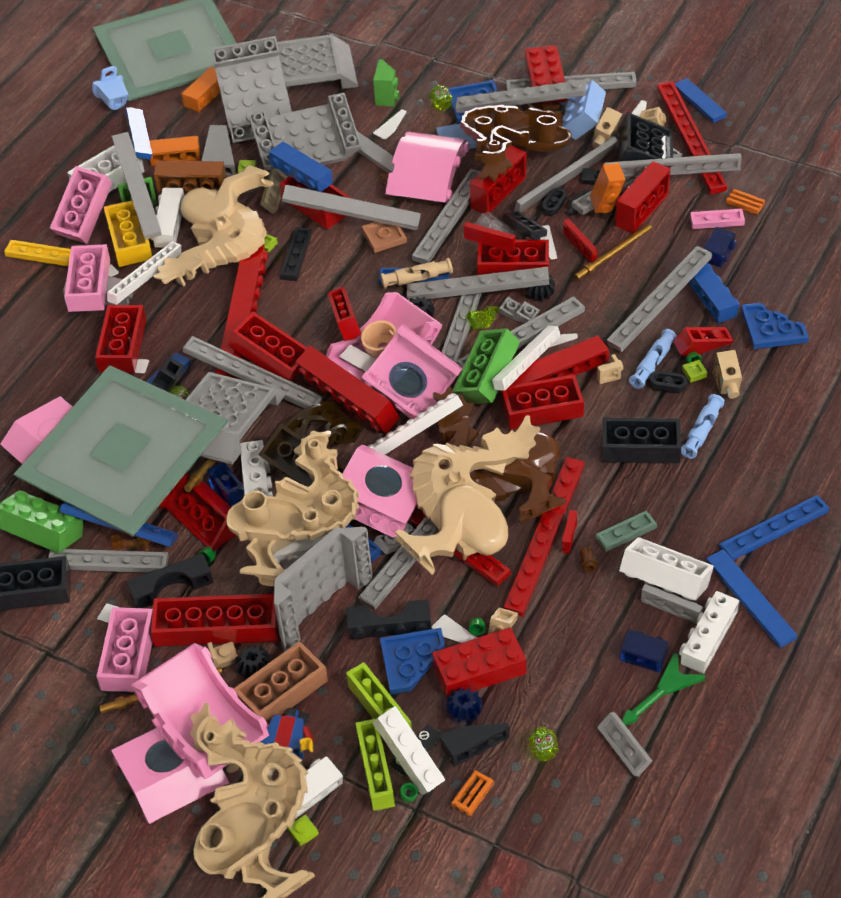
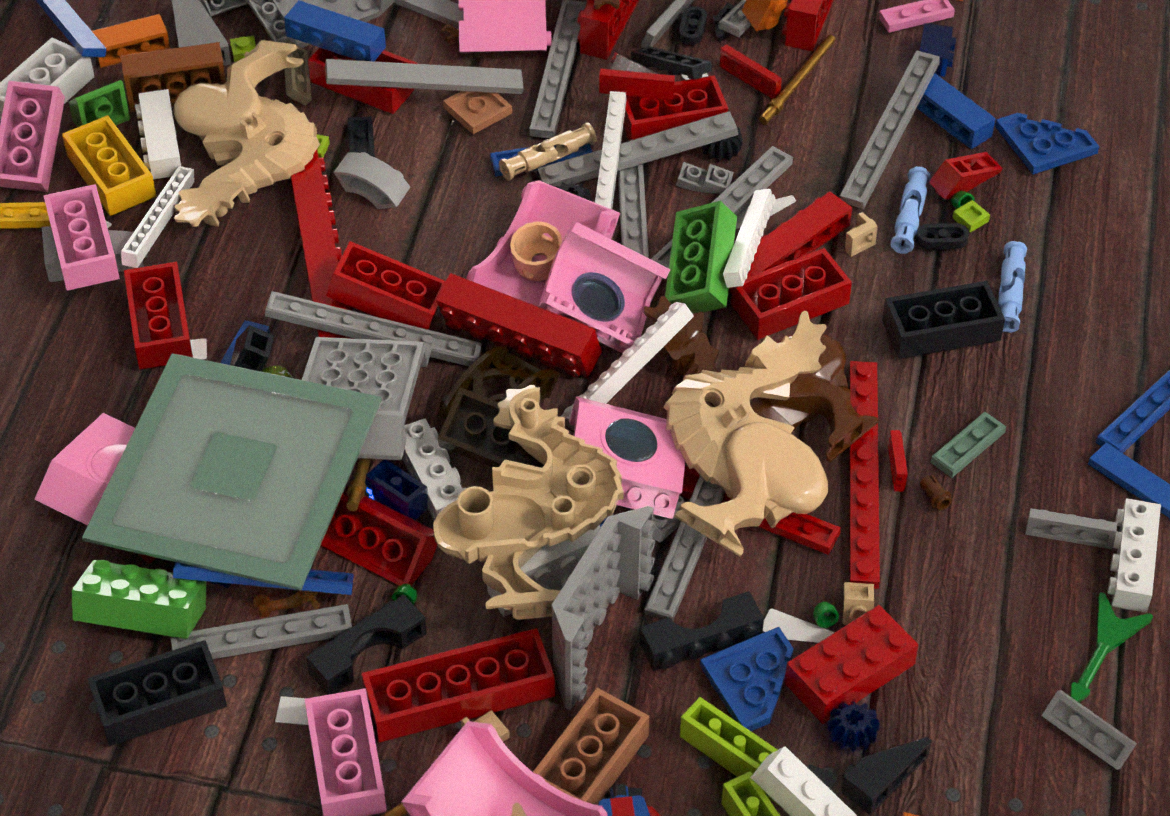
camera: 20 degrees left, 0 degrees up
(136, 185) = (105, 95): light grey tile -> none
(251, 660) = (533, 732): black gear -> none
(292, 272) = (372, 179): none -> light grey brick
(344, 314) = (474, 222): red brick -> none
(358, 358) = (516, 281): white sticker -> none
(455, 282) = (611, 149): none -> white piece
(484, 318) = (660, 197): clear neon green slope -> none
(543, 744) = (983, 754): clear neon green head -> none
(644, 650) = (1062, 599): clear blue brick -> none
(666, 569) = (1051, 483): white brick -> none
(727, 373) = (1018, 211): tan torso -> none

